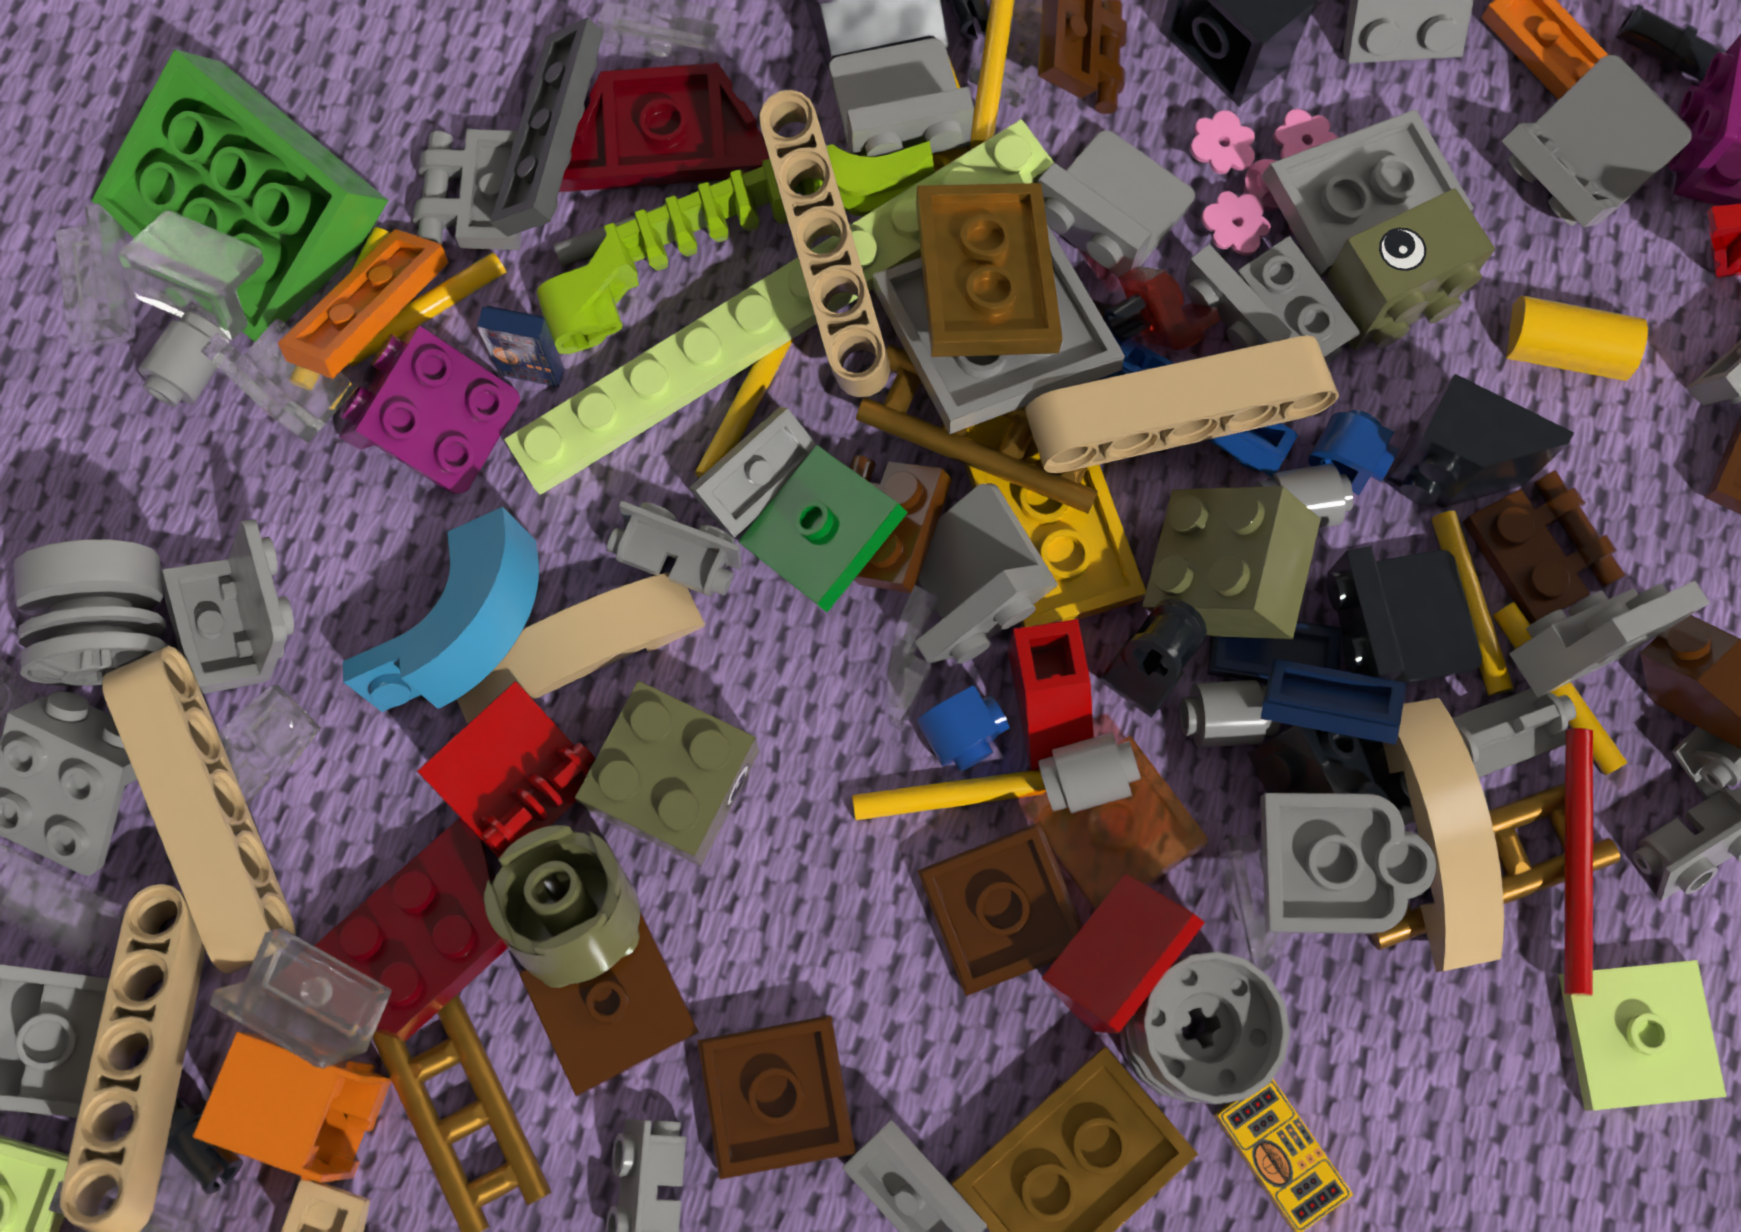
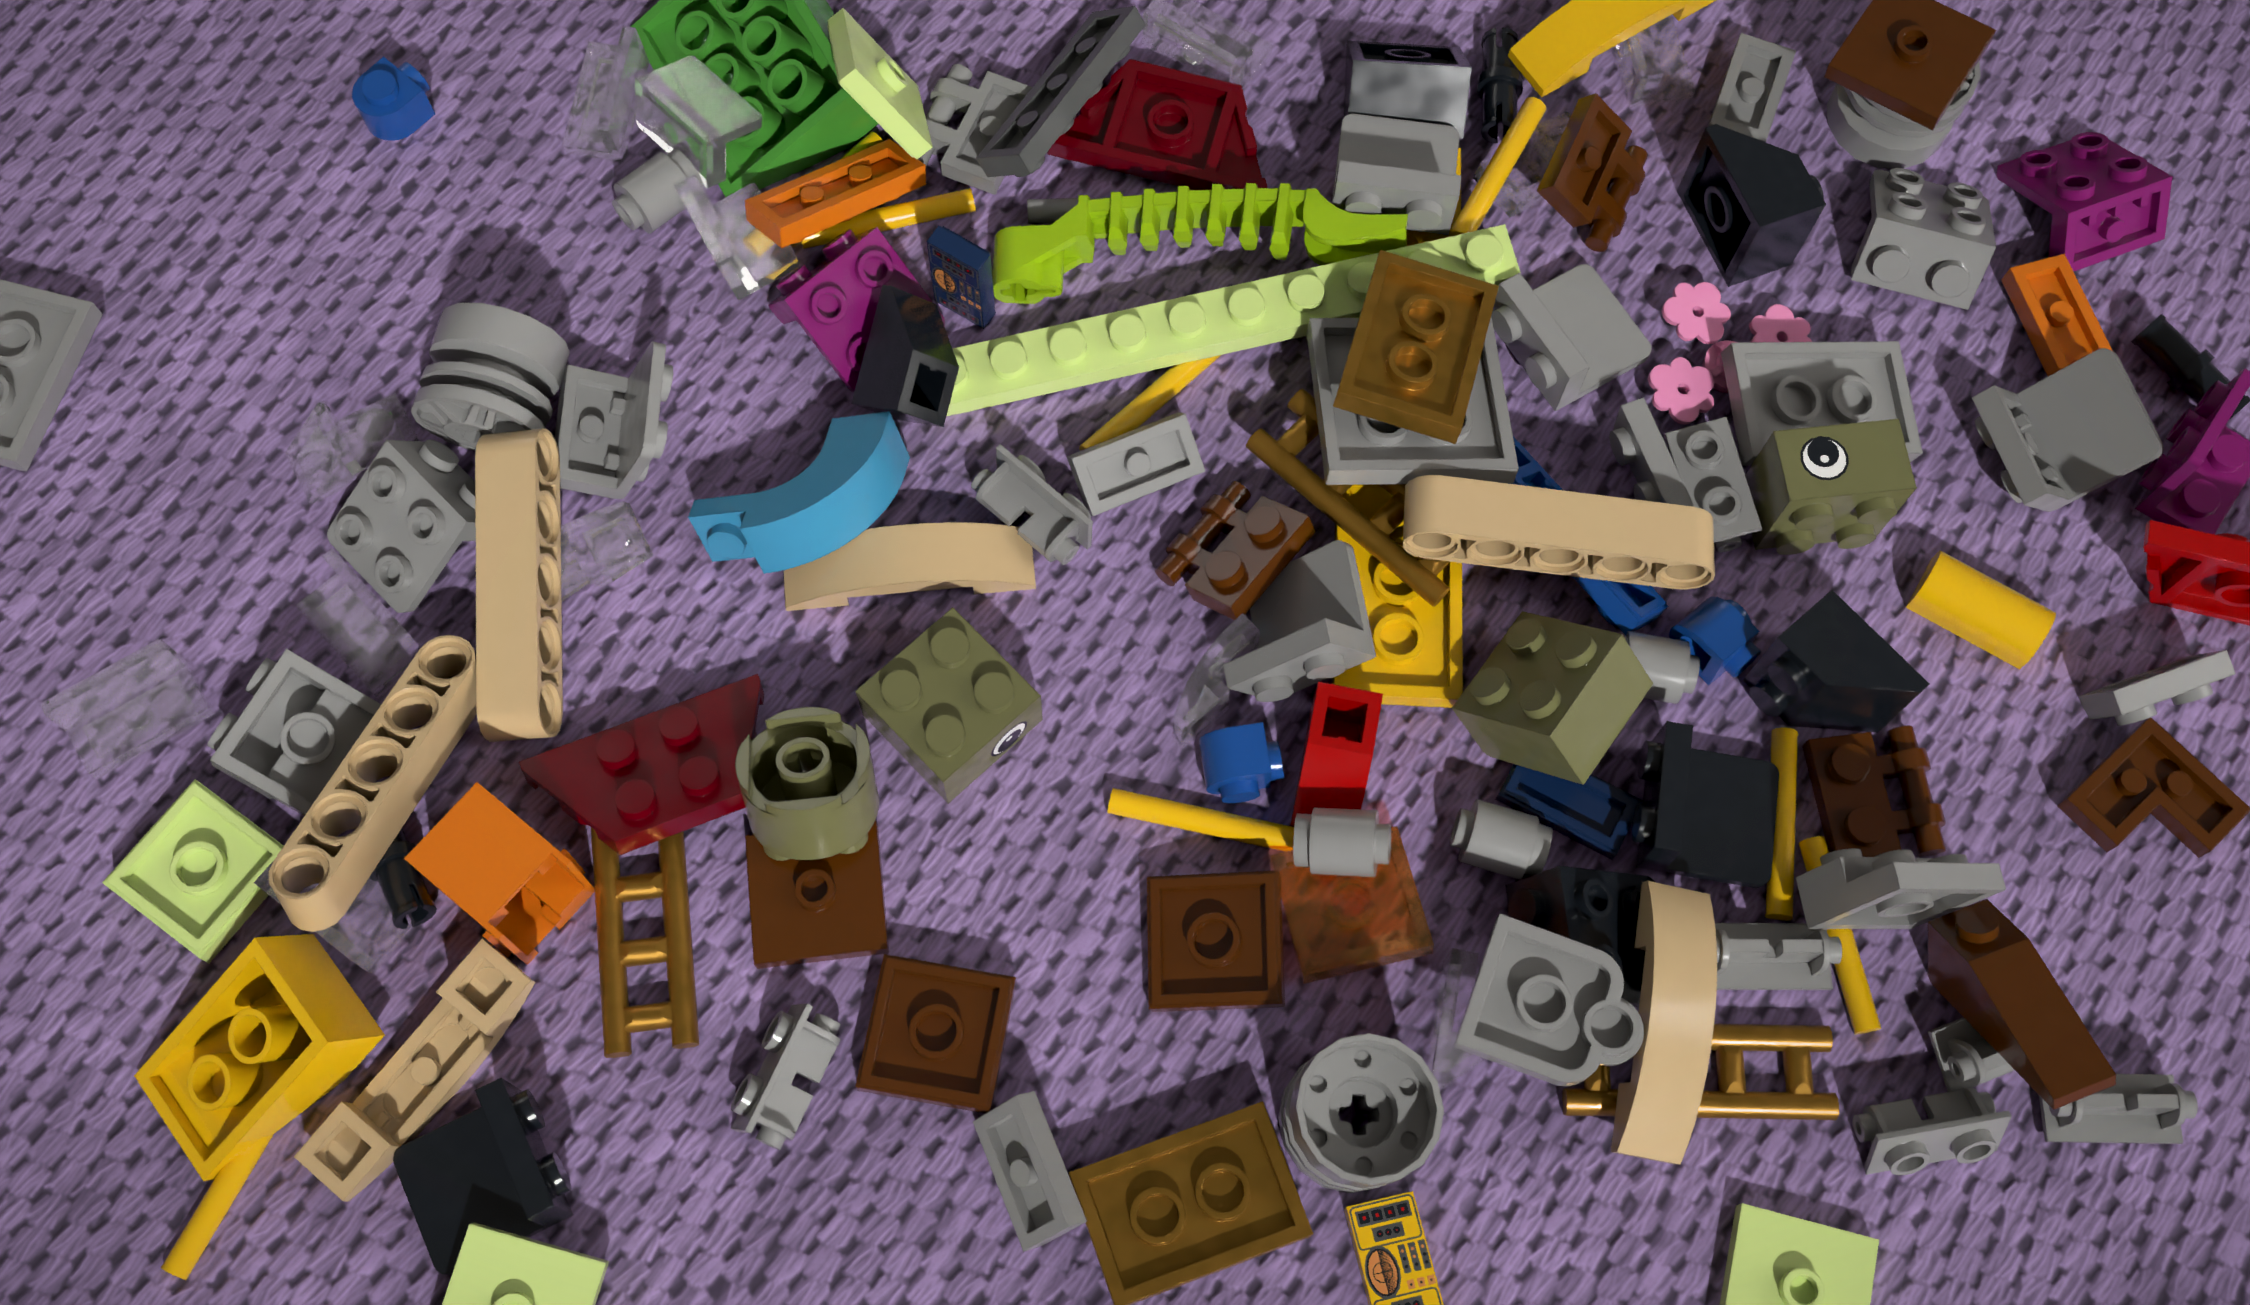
camera: 20 degrees right, 5 degrees down
(305, 1001) = (548, 781): clear panel -> none
(365, 180) = (878, 84): none -> yellowish green plate
(499, 448) = (907, 361): none -> black slope
(508, 770) = (805, 648): red hinge -> none
(820, 215) = (1269, 247): tan beam -> none
(822, 527) = (1177, 533): green plate -> none
(1121, 955) = (1304, 1014): red slope -> none
(1124, 317) = (1536, 439): black hand -> none
(1154, 657) = (1447, 758): black piece -> none
(1171, 324) = (1572, 438): clear red bracket -> none
(1334, 701) = (1602, 857): dark blue tile -> none
(1578, 863) = (1792, 1101): red bar -> none

